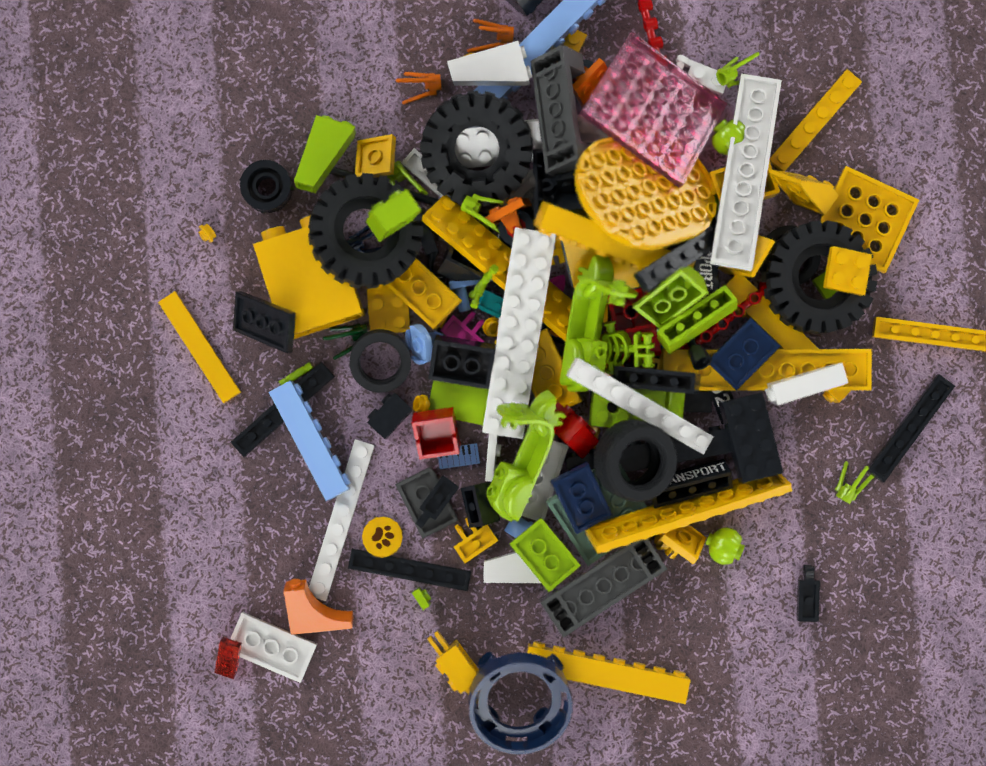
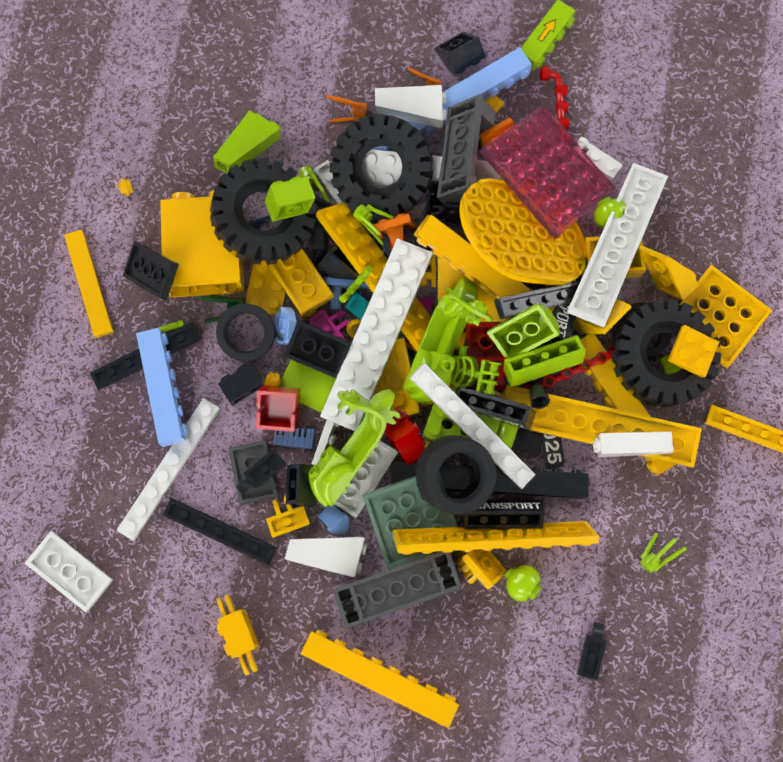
camera: 10 degrees right, 10 degrees down
(228, 657) = (24, 570): clear red plate -> none
(255, 174) = (185, 146): black piece -> none
(309, 614) = (111, 546): orange arch -> none
(376, 156) = (293, 154): yellow plate -> none
(382, 537) = (202, 493): yellow tile -> none
(422, 597) = (223, 560): lime plate -> none
(544, 554) = (349, 545): lime plate -> none
(548, 723) = (251, 694): dark blue piece -> none
(581, 497) = (396, 499): dark blue tile -> none
(728, 73) = (621, 161): lime plant -> none
(743, 353) = (580, 404): dark blue tile -> none
(750, 438) = (570, 483): black brick -> none
(815, 121) = (692, 219): yellow plate -> none
(910, 428) = (723, 516): black tile -> none

